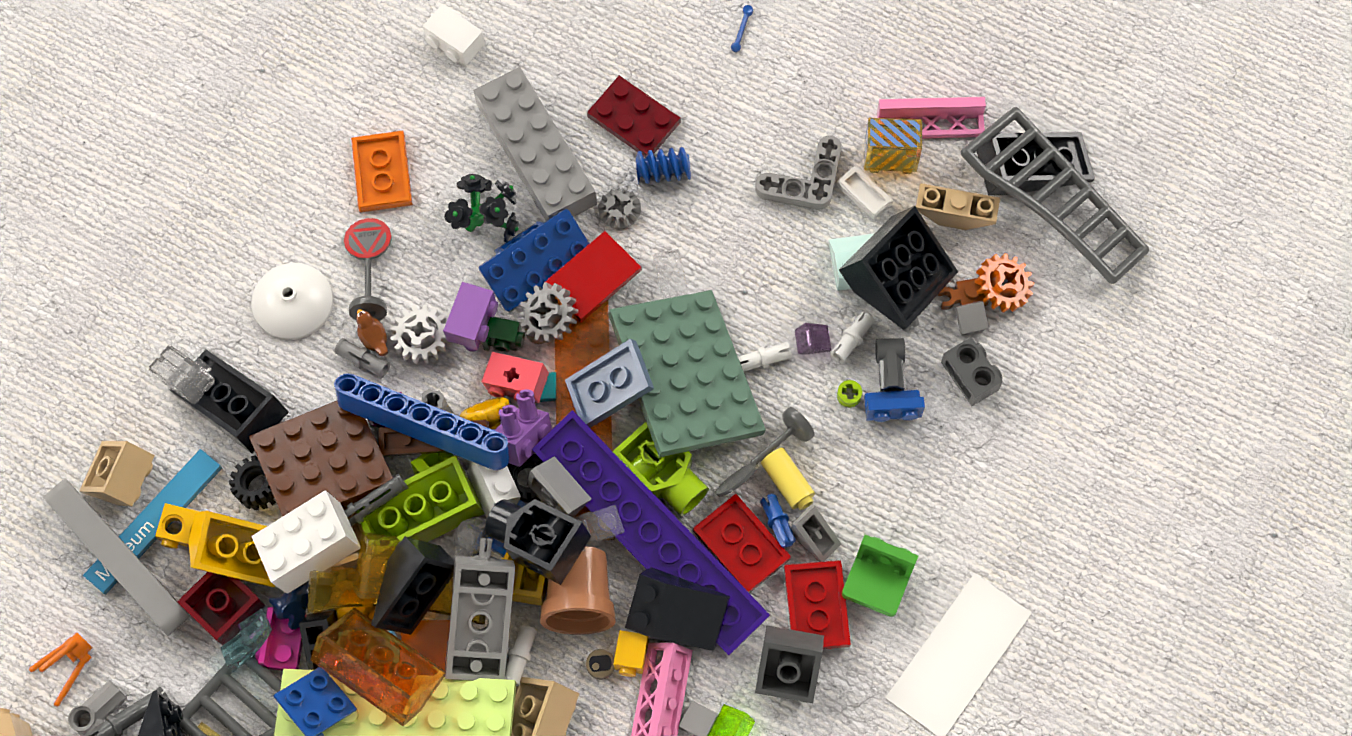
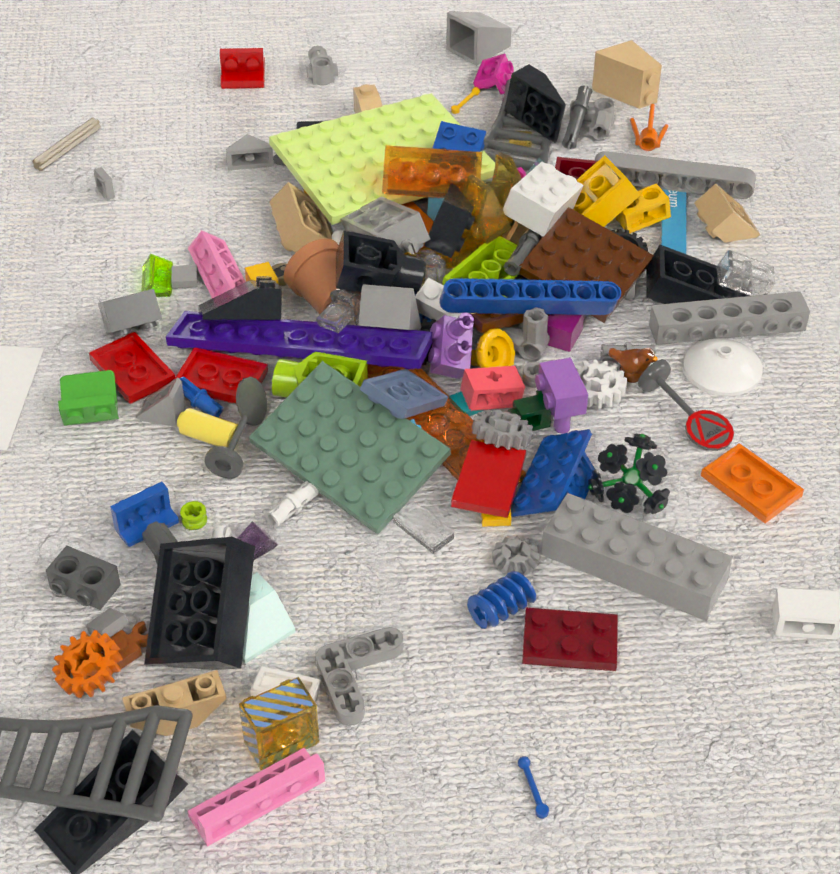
camera: 145 degrees right, 25 degrees down
(181, 309) = (728, 318): none -> light grey brick
(464, 376) = (528, 374): none -> light grey bush

